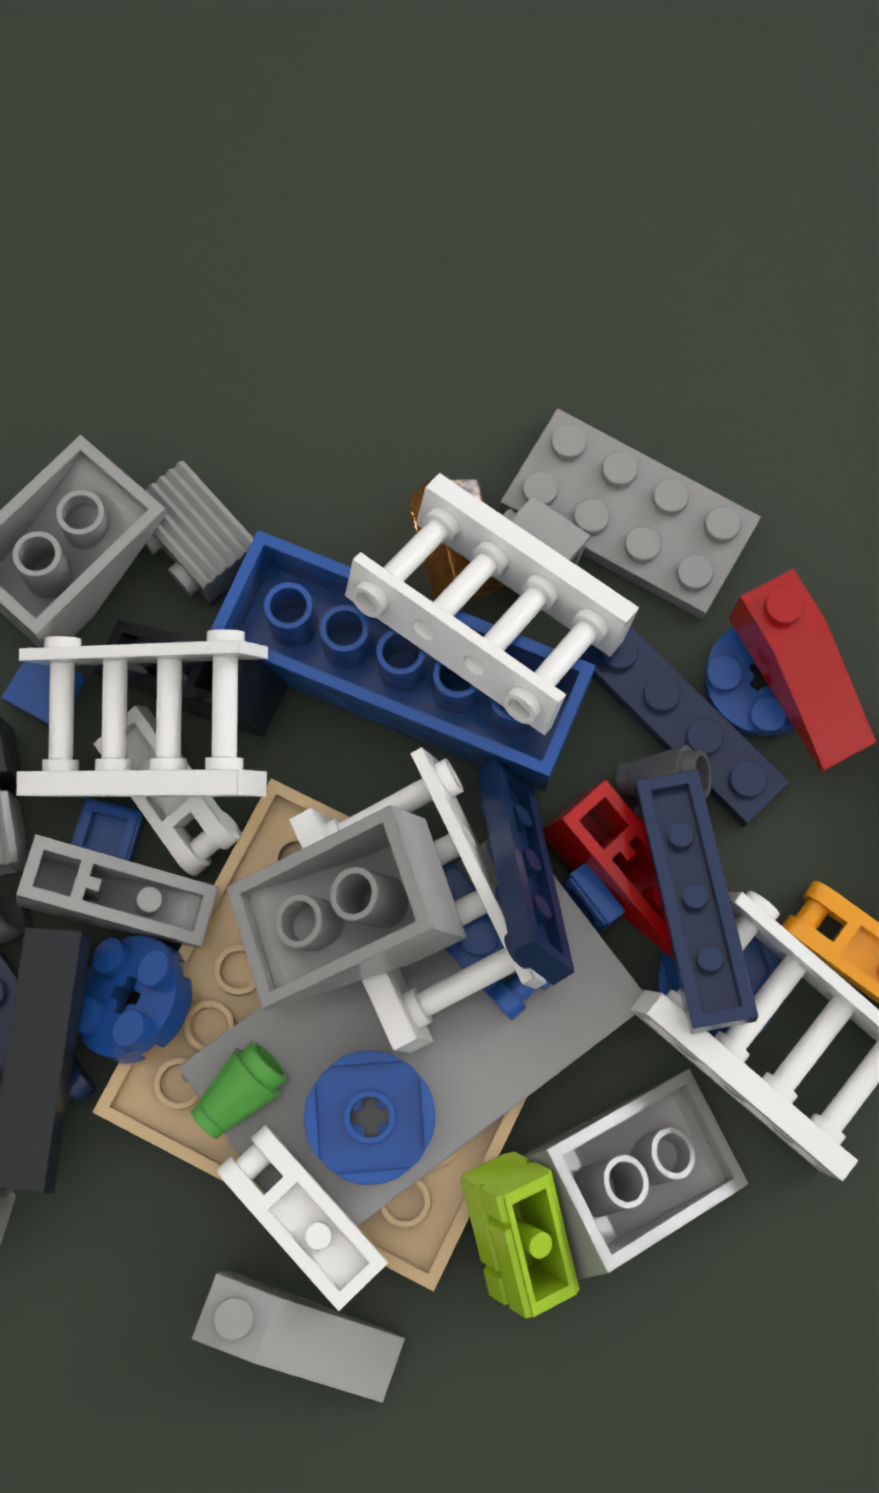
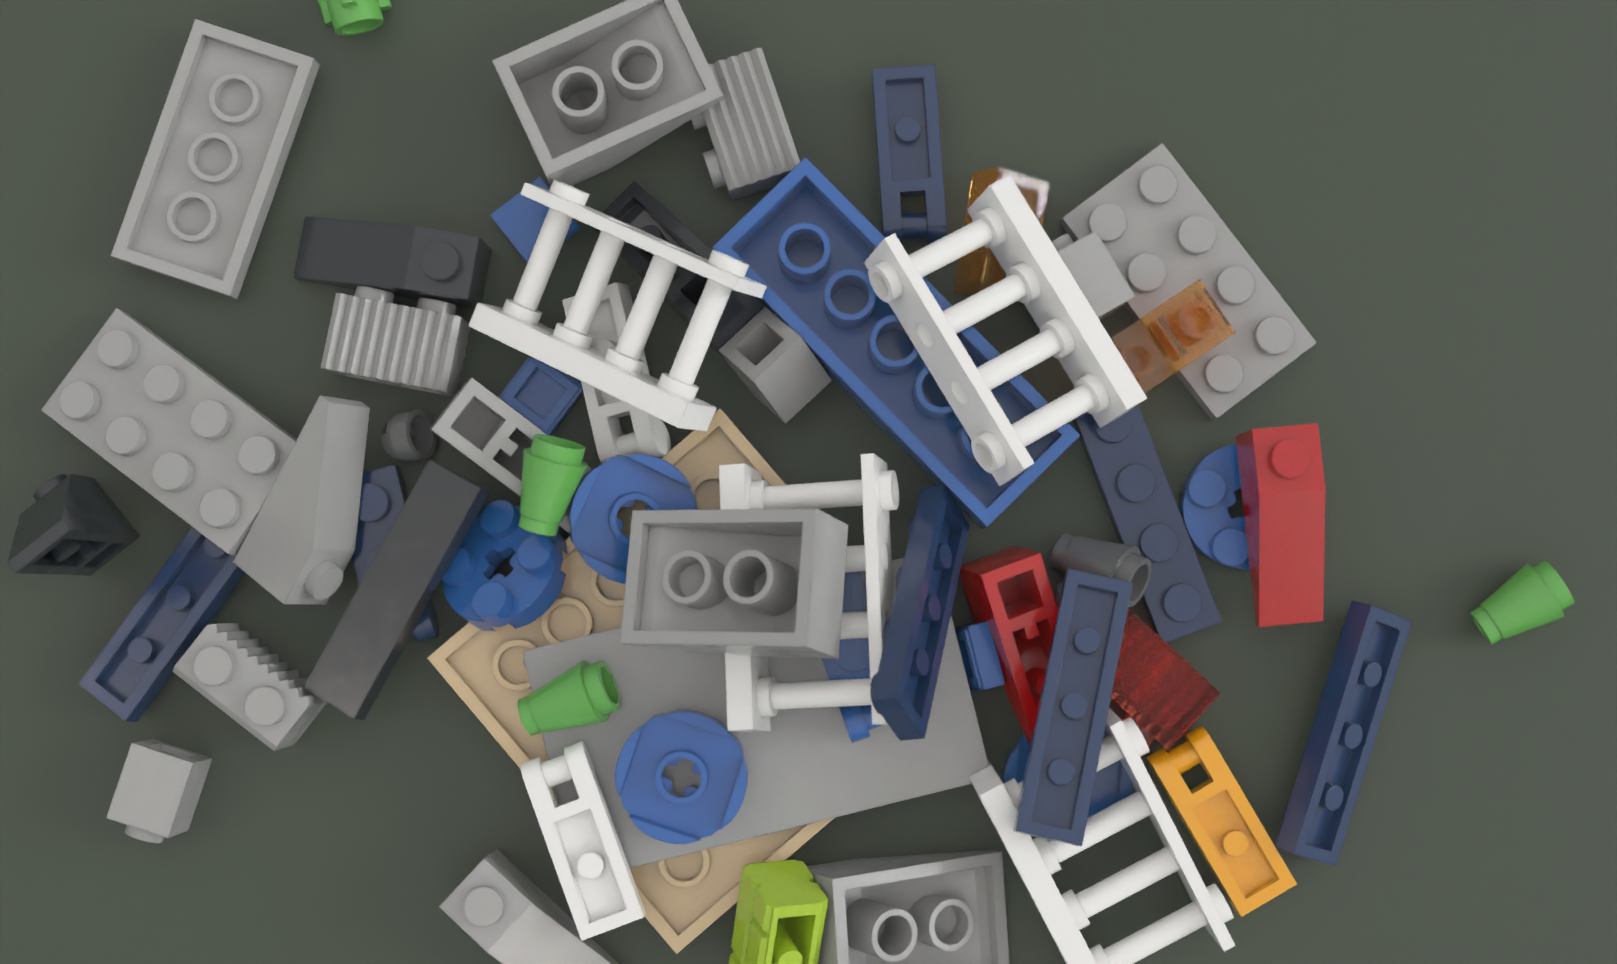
camera: 25 degrees right, 10 degrees up
(141, 898) = (549, 482): none -> bright green cone
(192, 895) = (615, 484): none -> blue plate
(304, 719) = (775, 364): none -> light grey brick
(343, 493) = (909, 150): none -> dark blue plate
(639, 552) = (1172, 335): none -> clear orange slope
(761, 856) = (1157, 685): none -> clear red brick

